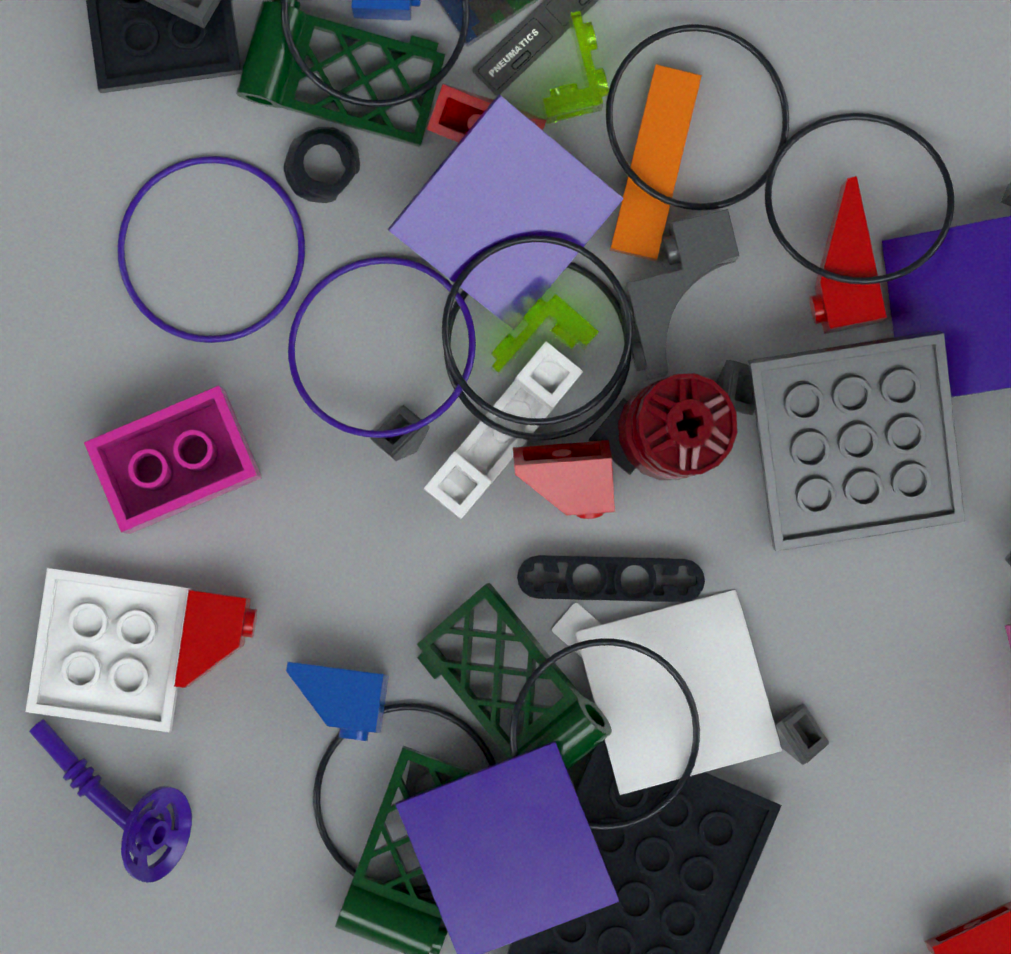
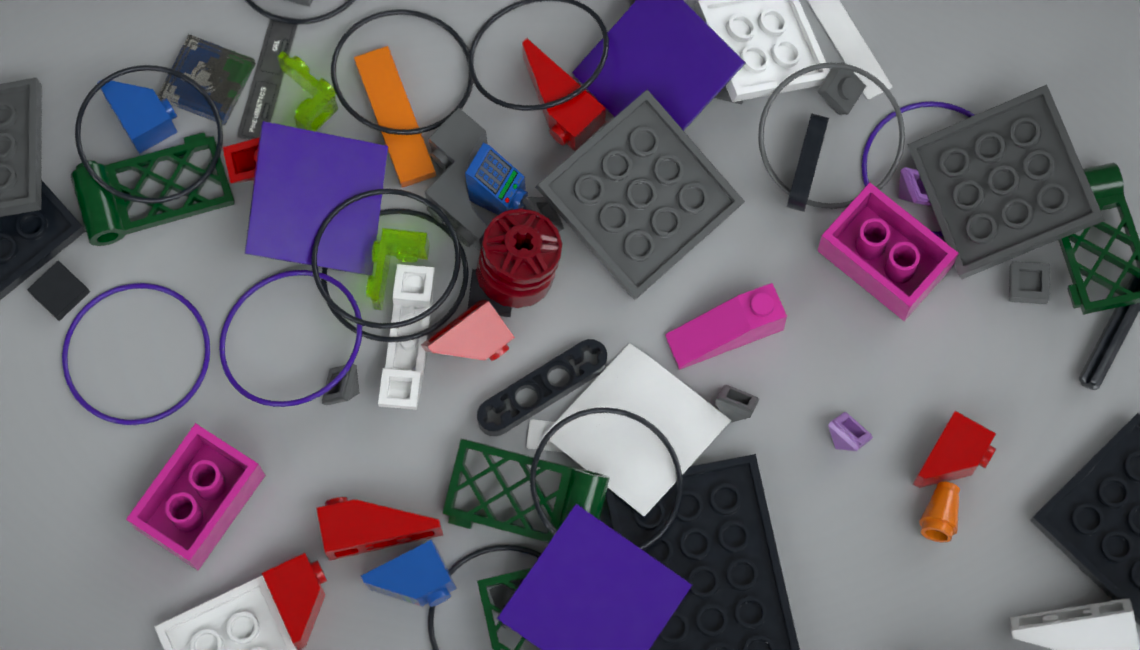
camera: 30 degrees left, 15 degrees down
(172, 123) = (58, 290): none -> black piece
(298, 178) = (169, 271): black piece -> none
(326, 606) = (364, 527): none -> red slope
(710, 324) = (494, 182): none -> blue slope
(847, 647) = (728, 326): none -> dark pink slope
(895, 847) = (848, 433): none -> medium lavender slope

